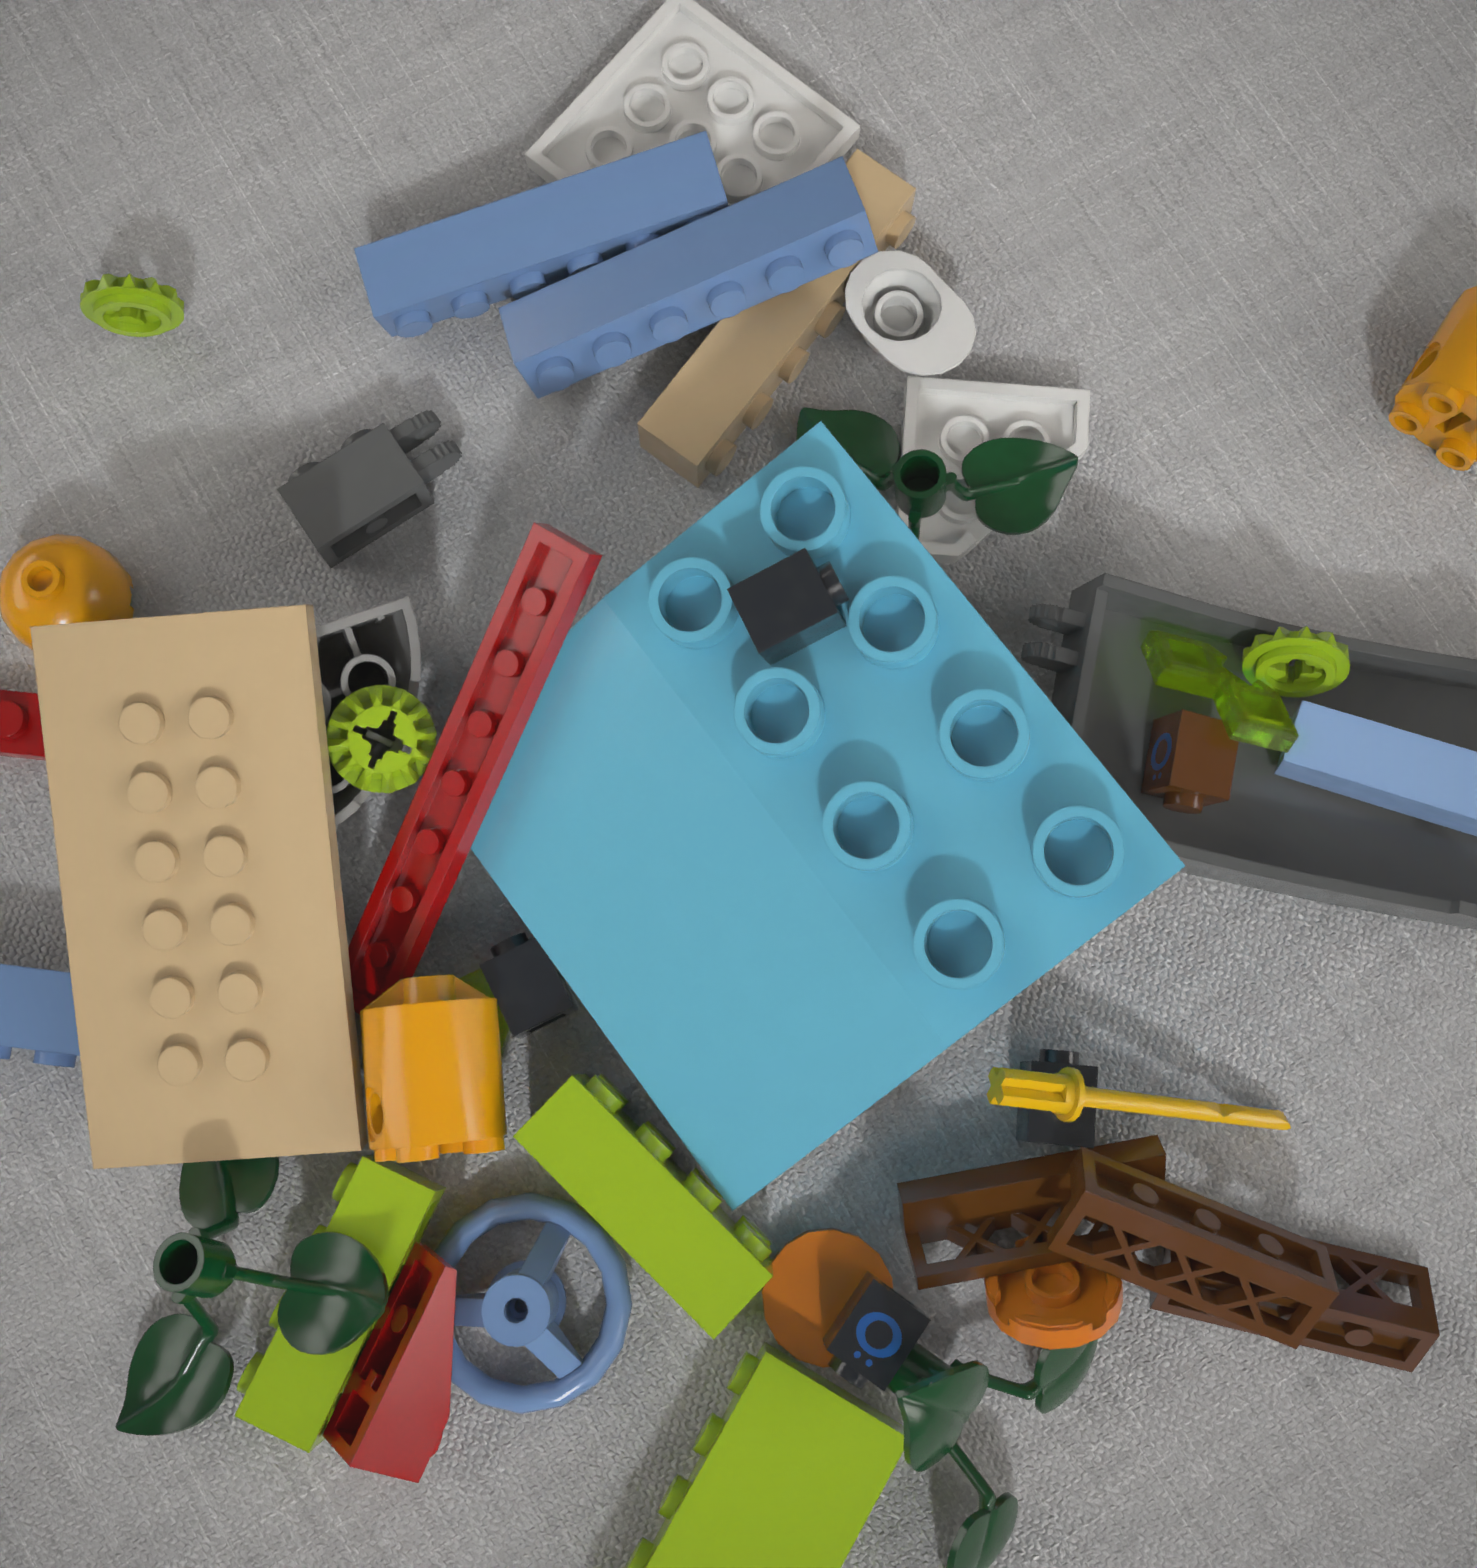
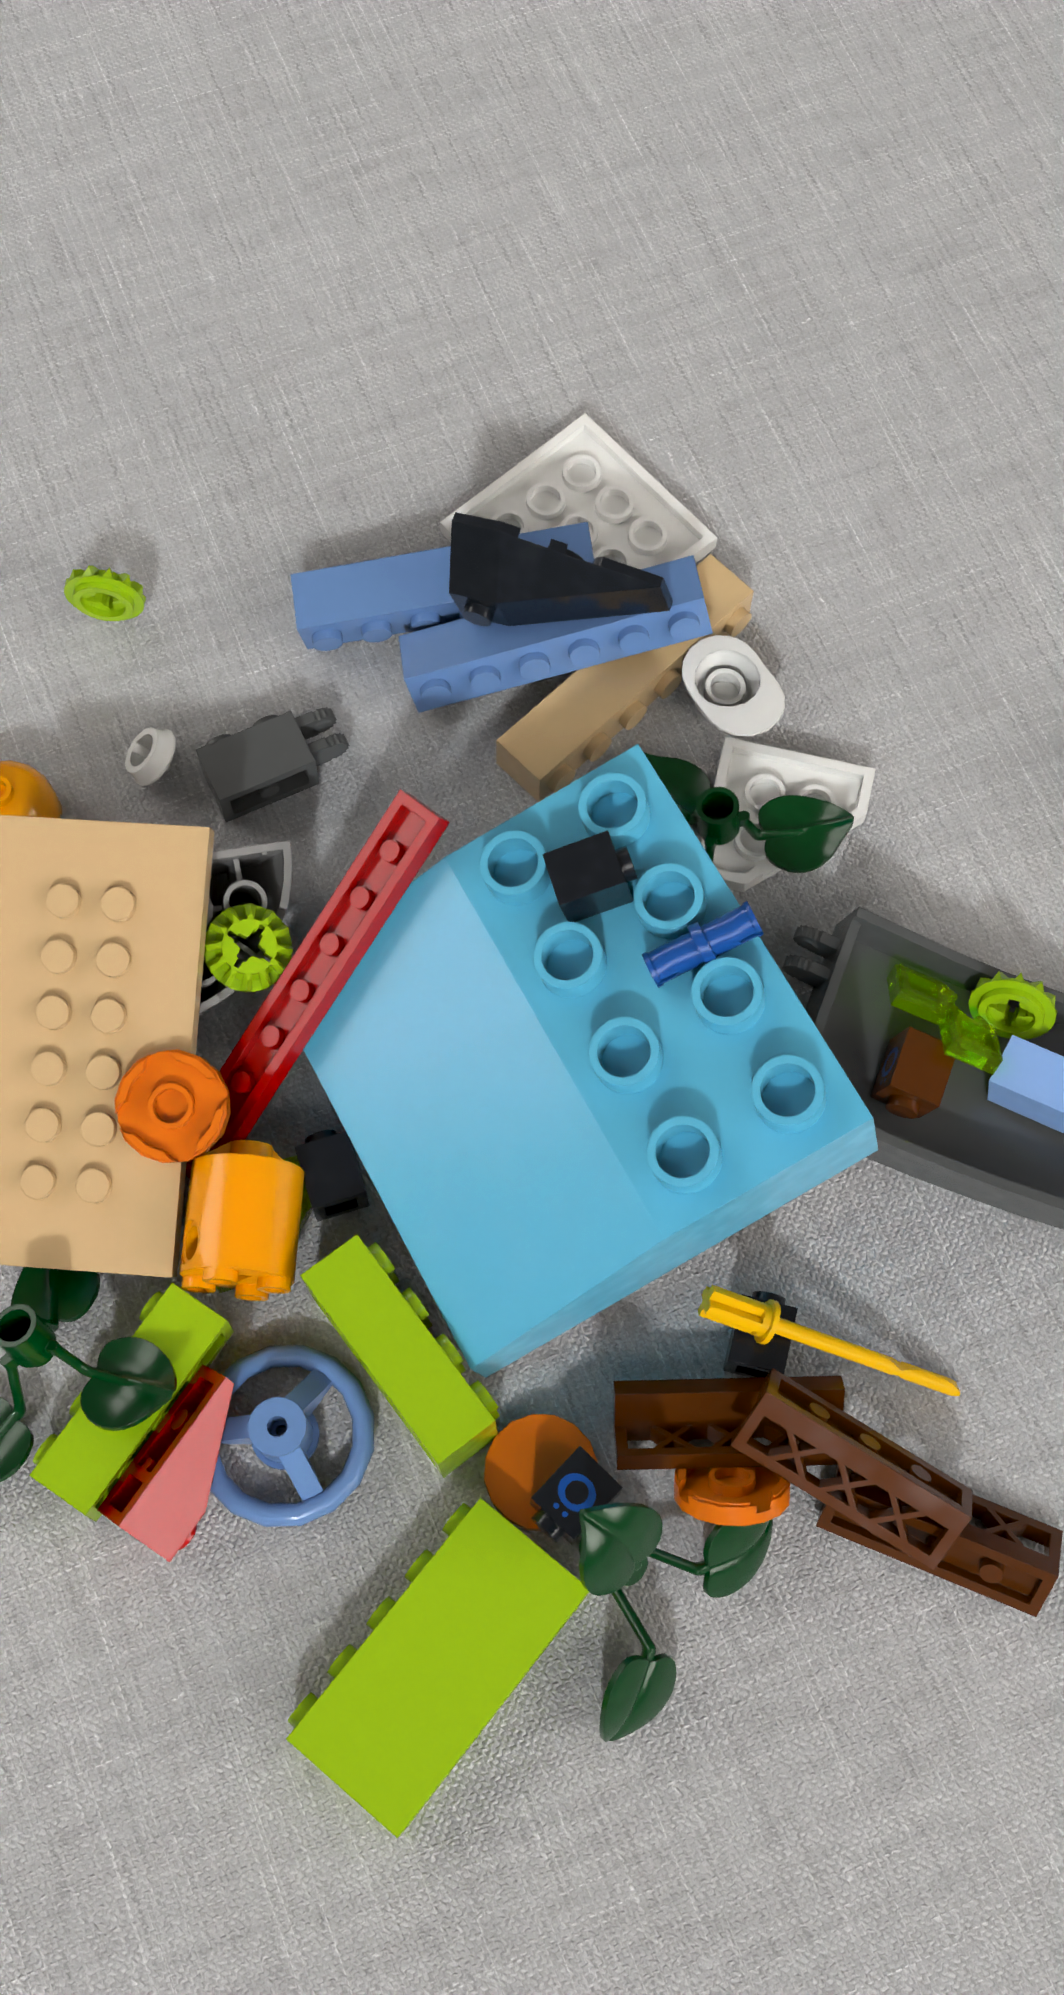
camera: 10 degrees right, 10 degrees down
(225, 501) = (150, 755): none -> white hat
(323, 953) = (172, 1106): none -> orange tile
(645, 223) = (523, 583): none -> black wedge
(943, 674) = (702, 944): none -> blue pin

